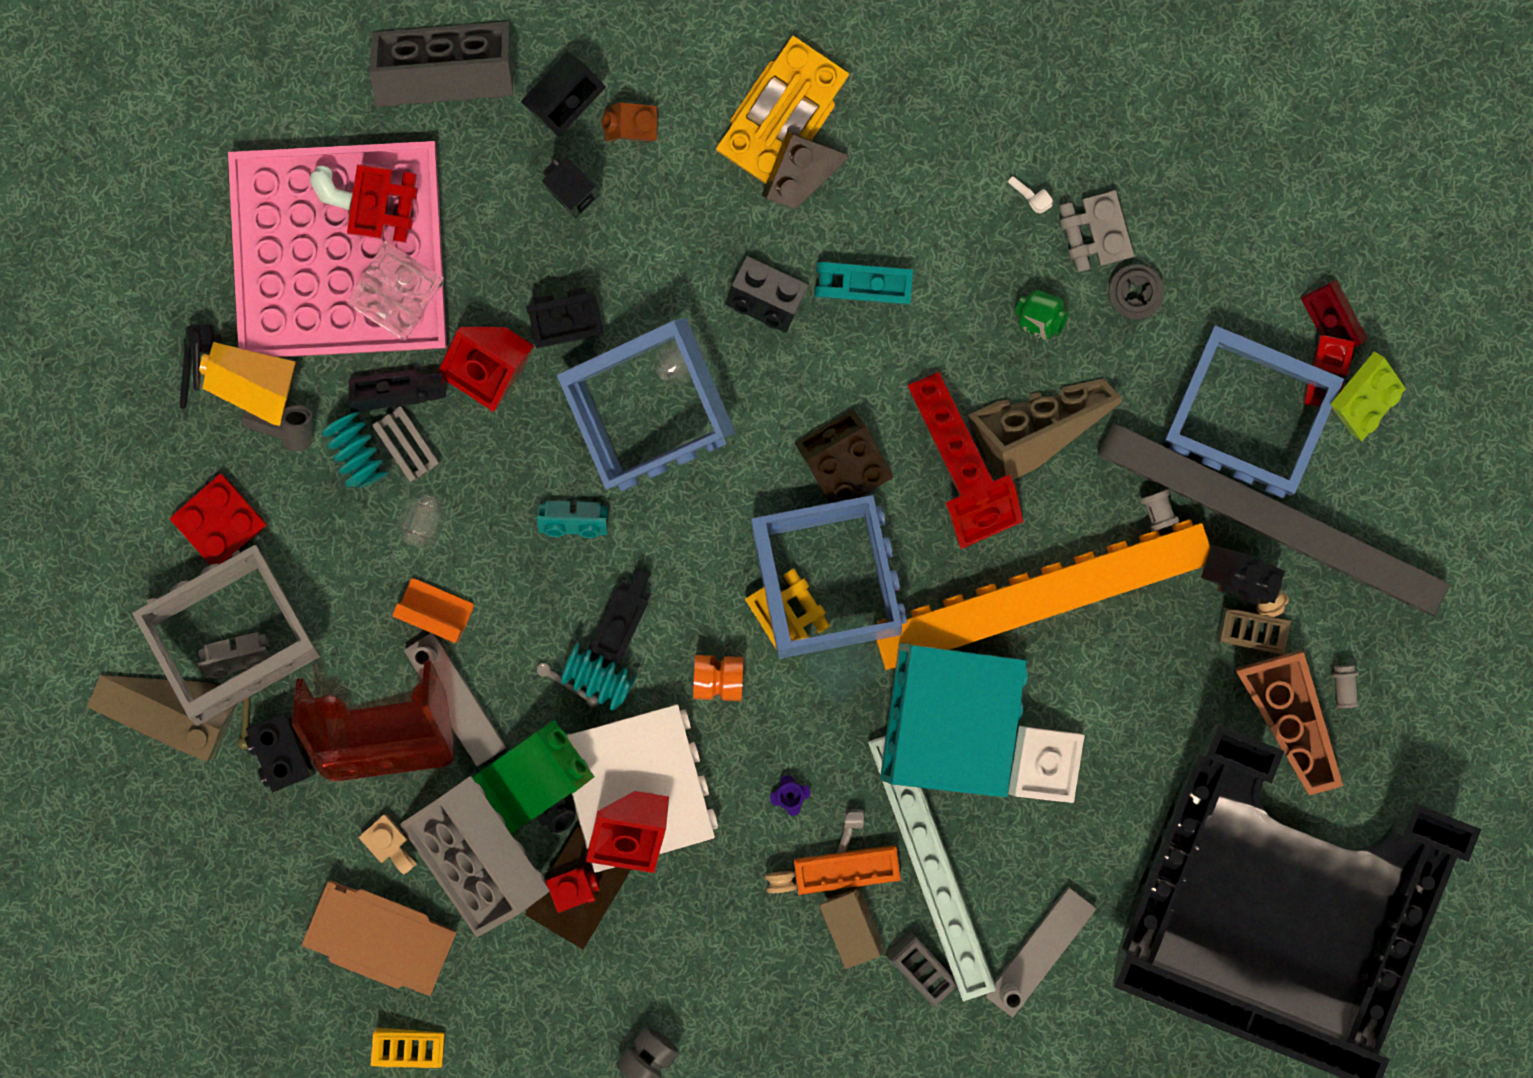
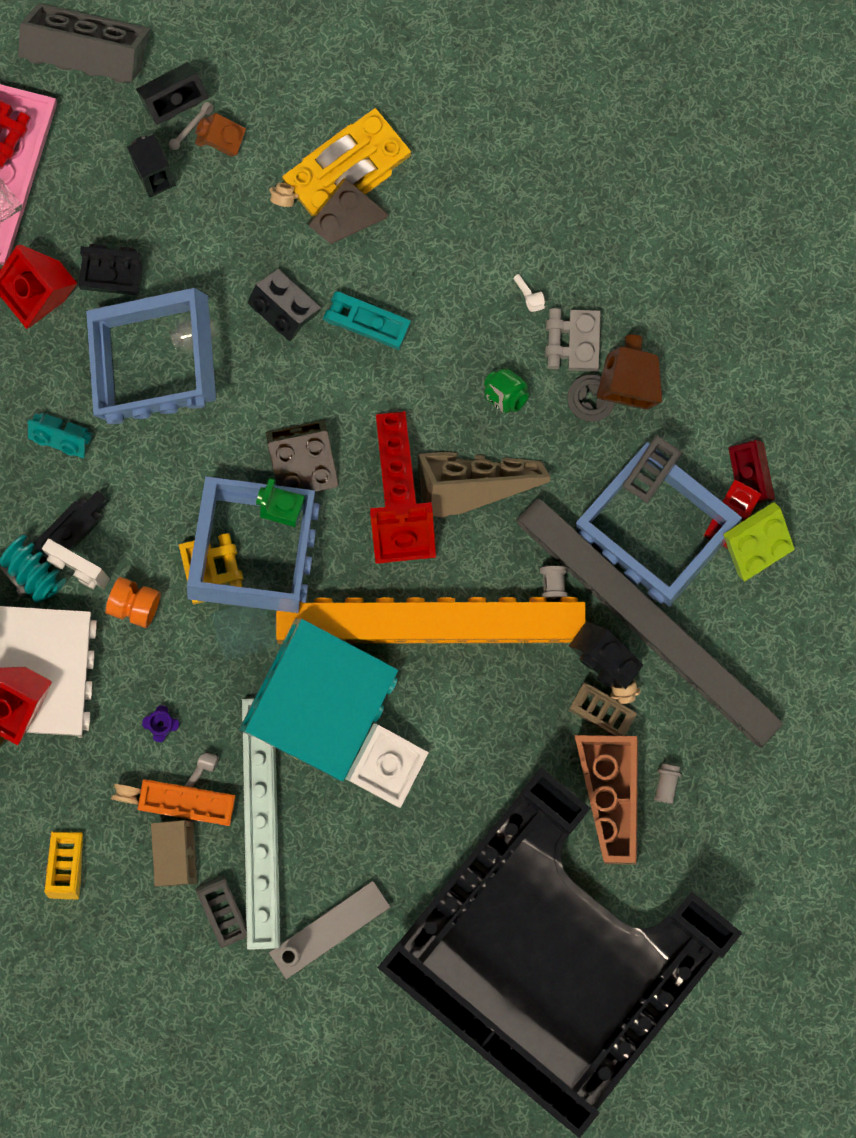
camera: 15 degrees right, 10 degrees down
(583, 148) = (206, 109): none -> light grey hinge
(660, 664) = (85, 571): none -> white plate
(724, 170) = (283, 195): none -> tan plate
(756, 984) = (64, 892): none -> yellow slope
(843, 525) = (279, 504): none -> green bracket
(1173, 255) = (631, 376): none -> reddish brown torso
(1248, 346) = (661, 475): none -> dark grey slope

